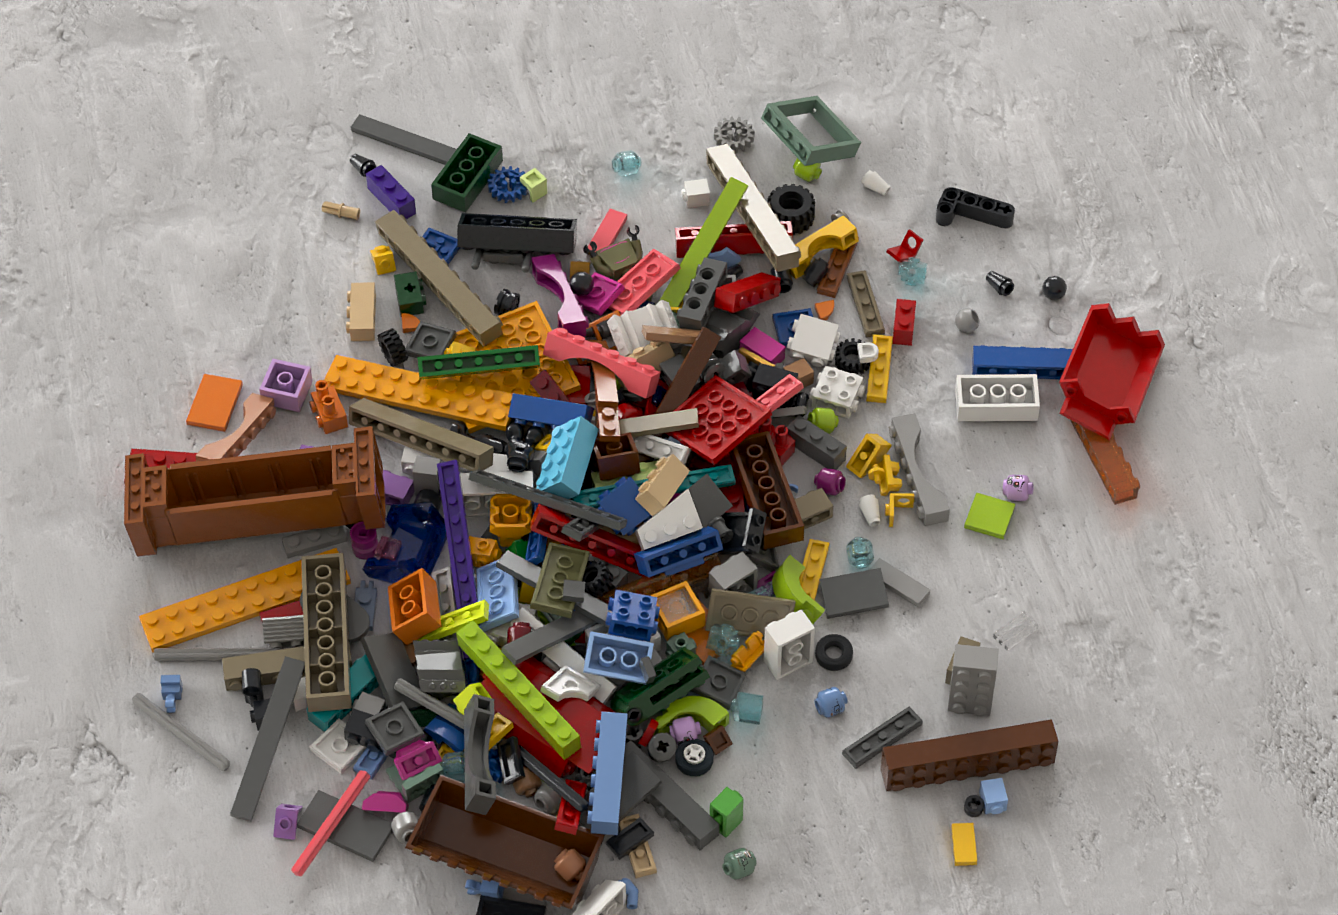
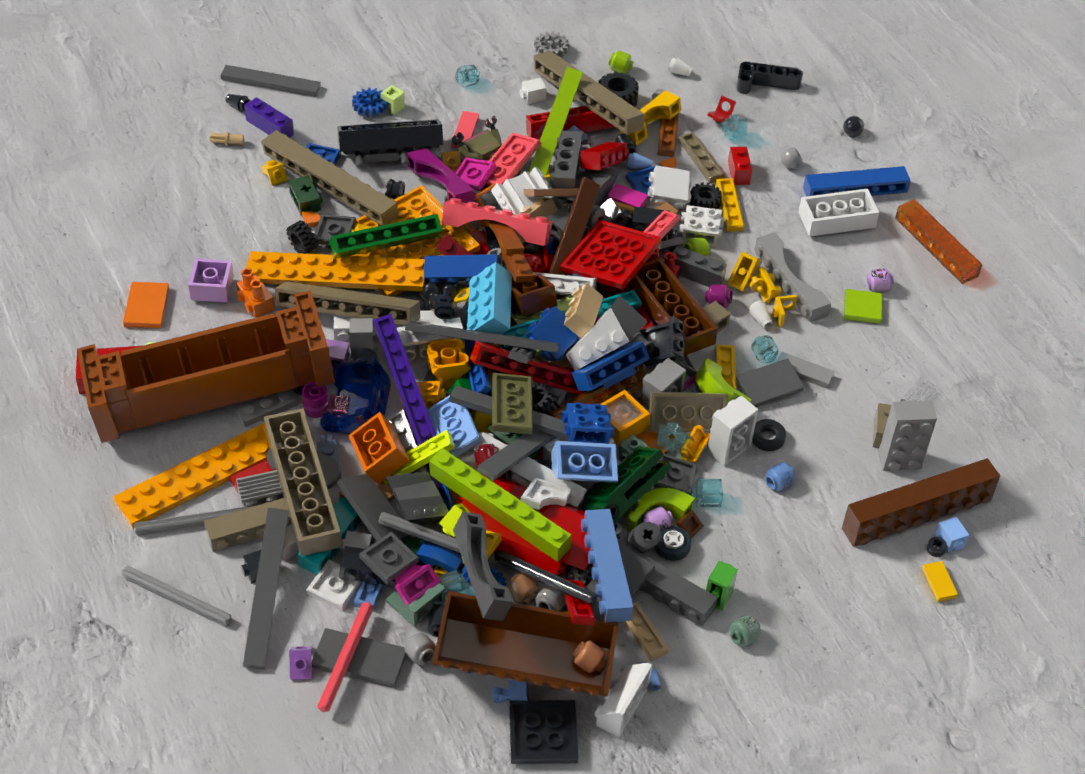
camera: 15 degrees left, 5 degrees down
(171, 691) = (159, 558): medium blue piece -> none
(252, 685) = (239, 541): black piece -> none
(257, 413) = (189, 307): nougat arch -> none
(361, 311) = (265, 214): tan brick -> none
(386, 802) = (394, 628): dark pink slope -> none
(467, 172) = (332, 96): dark green brick -> none
(510, 760) = (507, 569): black tile -> none
(573, 591) = (529, 409): dark grey tile -> none
(581, 283) = (459, 165): black piece -> none
(630, 838) = (640, 622): black tile -> none
(647, 669) = (617, 467): dark grey tile -> none
(649, 732) = (628, 526): red tile -> none
(660, 423) = (565, 262): tile -> none
(776, 118) = (592, 26): sand green window -> none
(790, 300) = (637, 161): none -> light blue cone
(816, 271) = (653, 137): black brick -> none
(867, 352) = (718, 190): white tile -> none
(882, 736) = (834, 501): dark grey tile -> none
(1000, 283) = (810, 129): black cone -> none
(1109, 371) = (926, 179): red panel -> none

